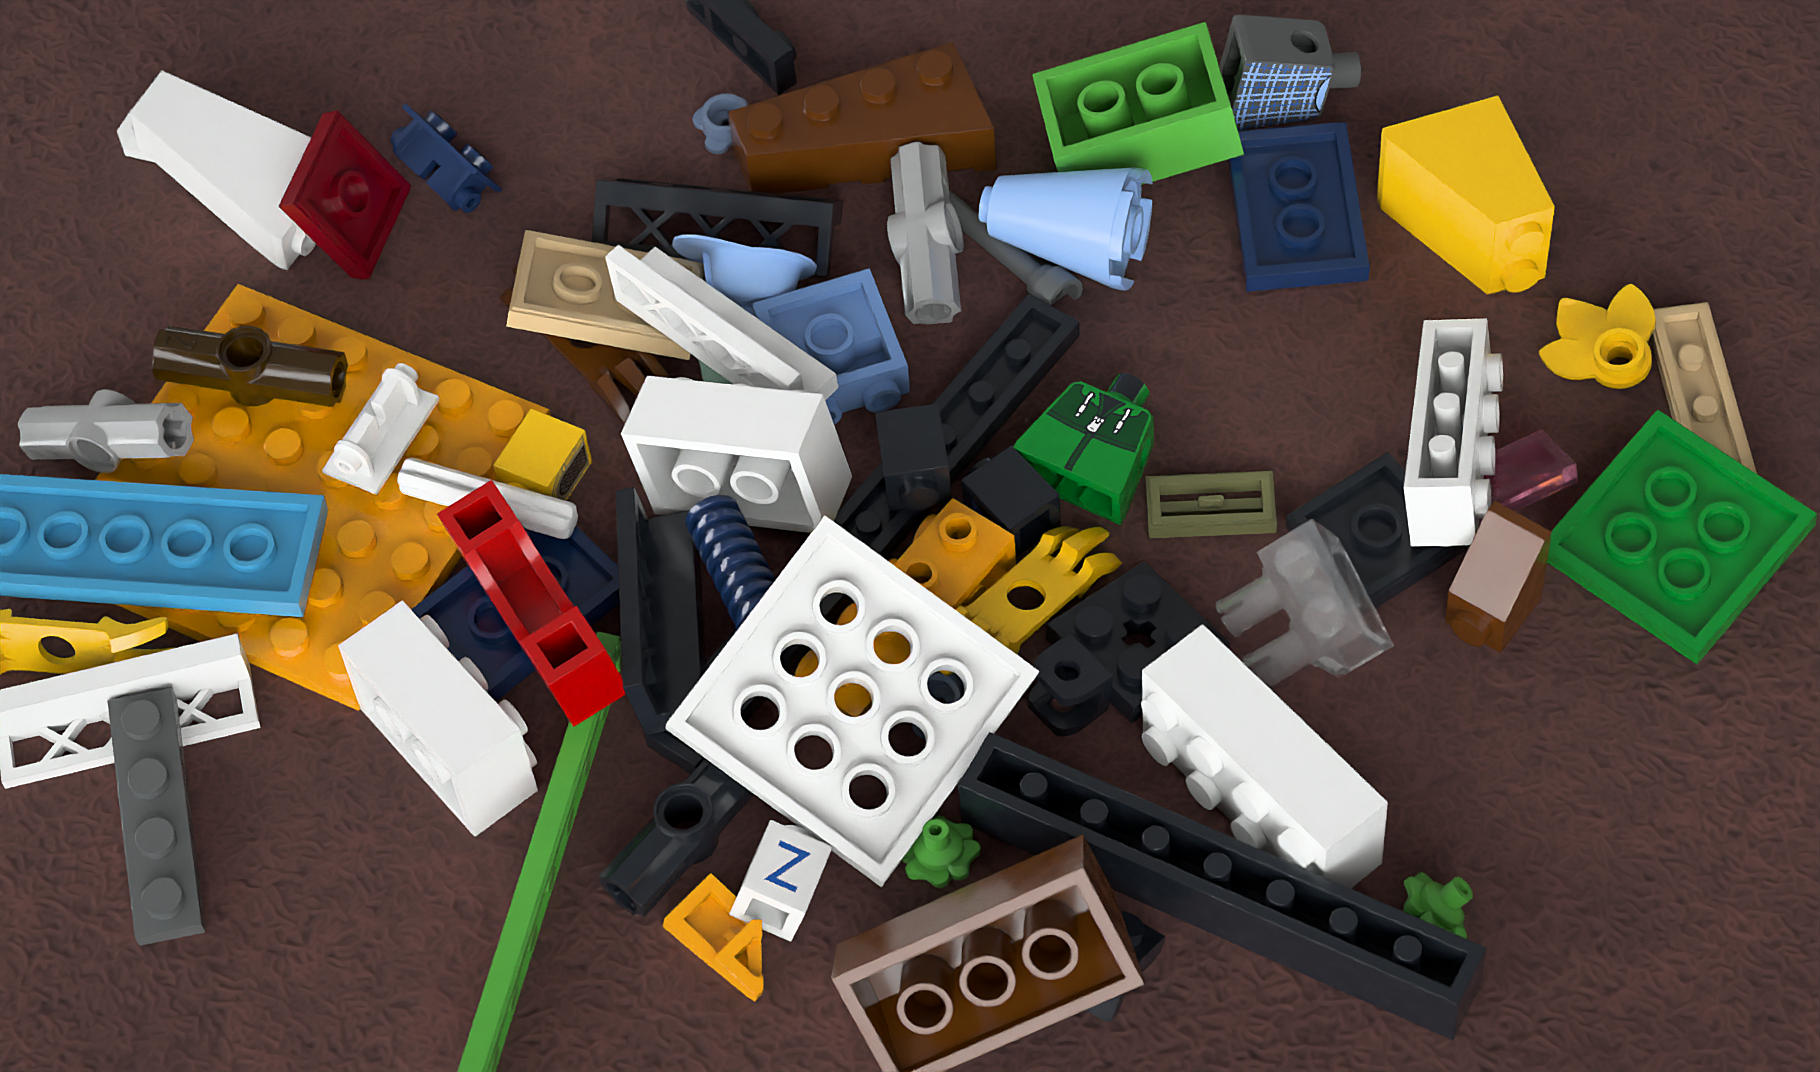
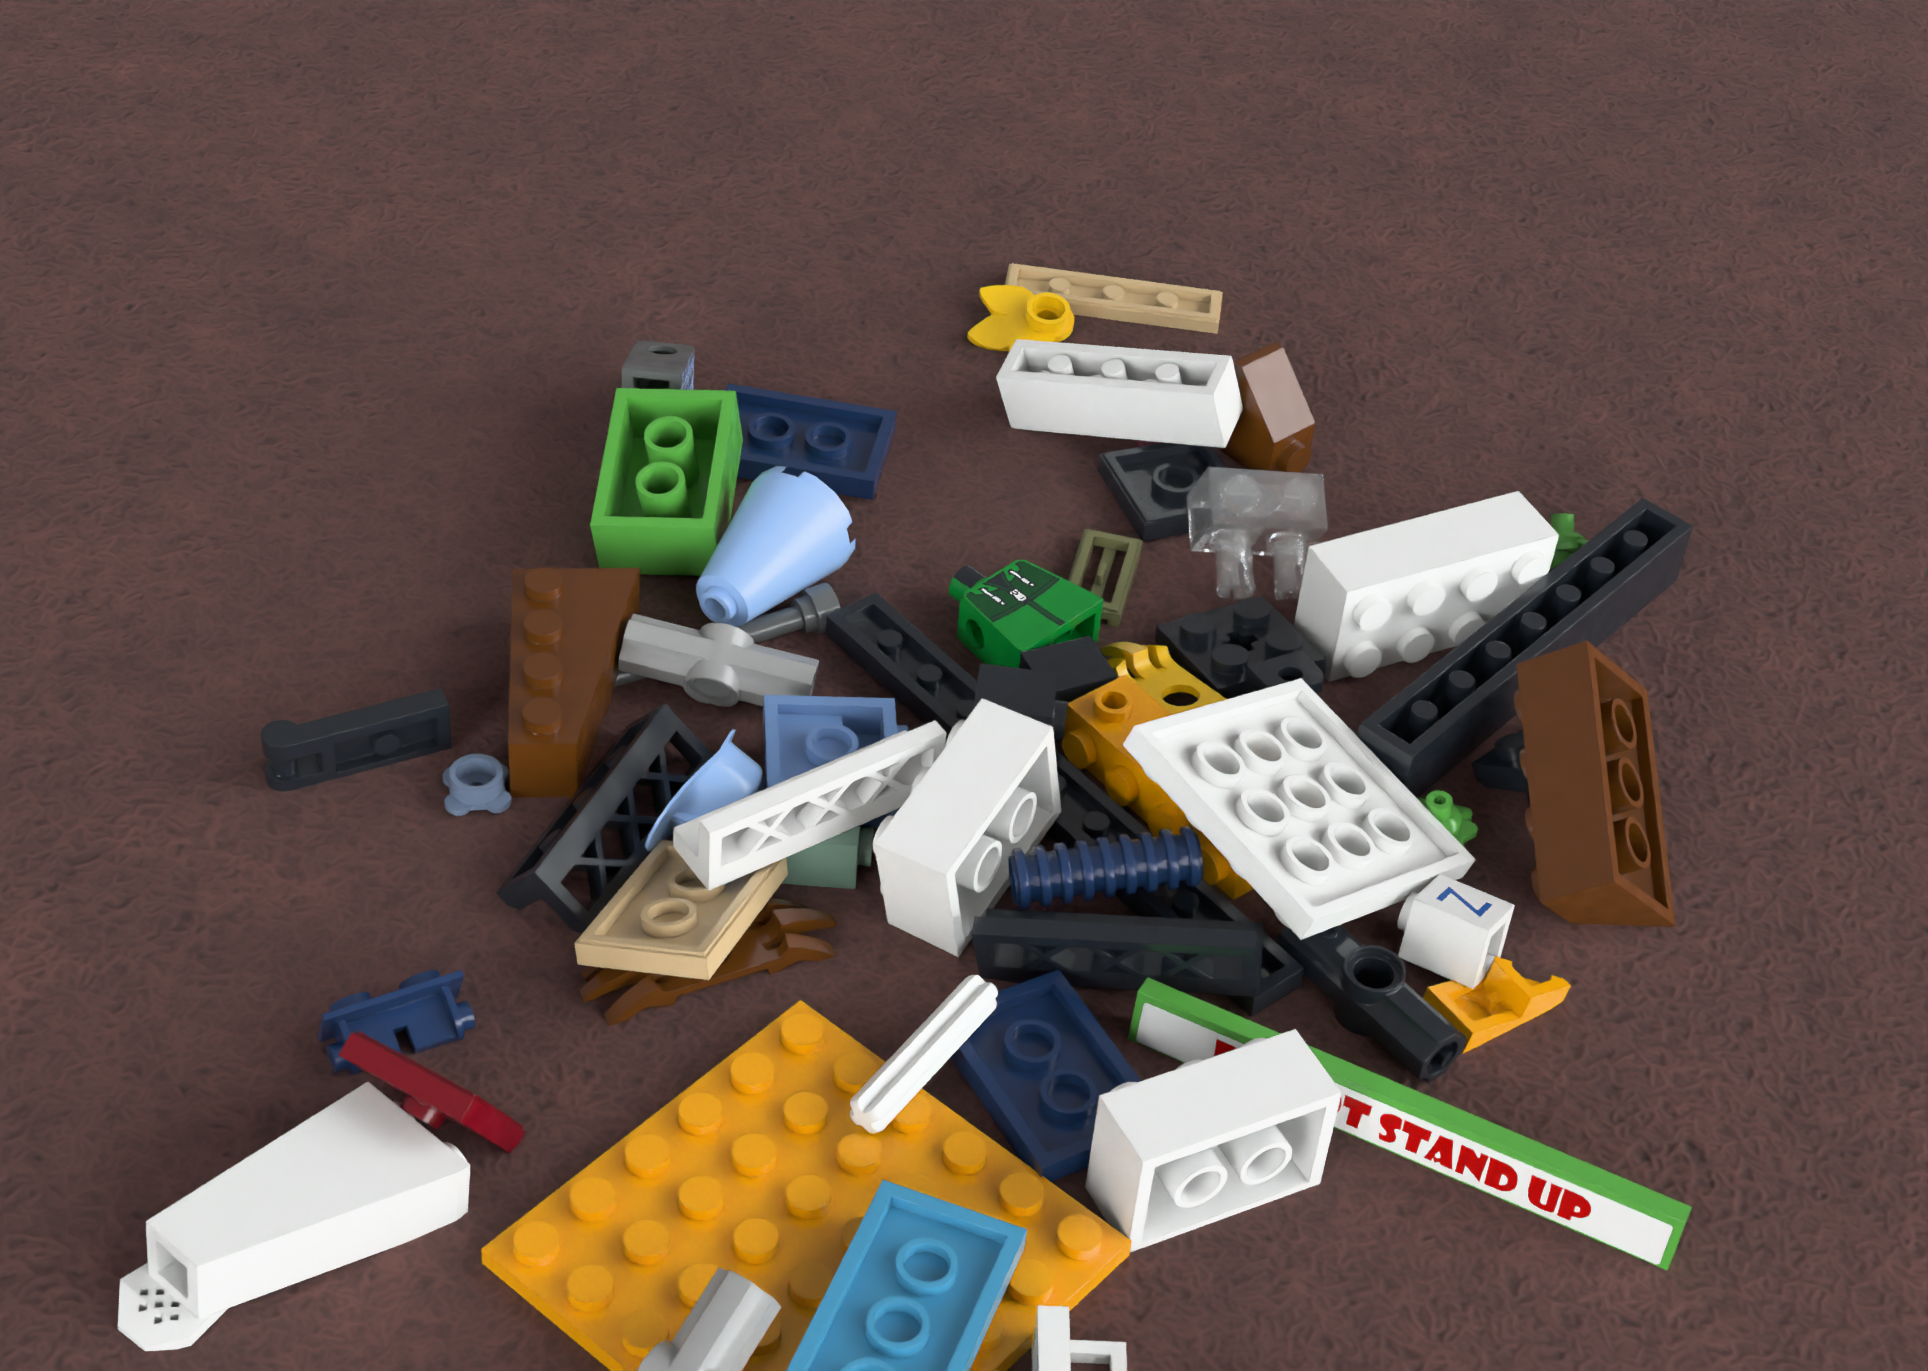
camera: 85 degrees left, 15 degrees down
(249, 366) = (656, 1222): dark brown piece -> none
(382, 431) = (795, 1125): white hinge -> none
(533, 603) = (1193, 991): red arch -> none
(544, 456) = (878, 1004): yellow brick -> none
(1469, 194) = (872, 321): yellow slope -> none
(1678, 536) = (1239, 312): green plate -> none

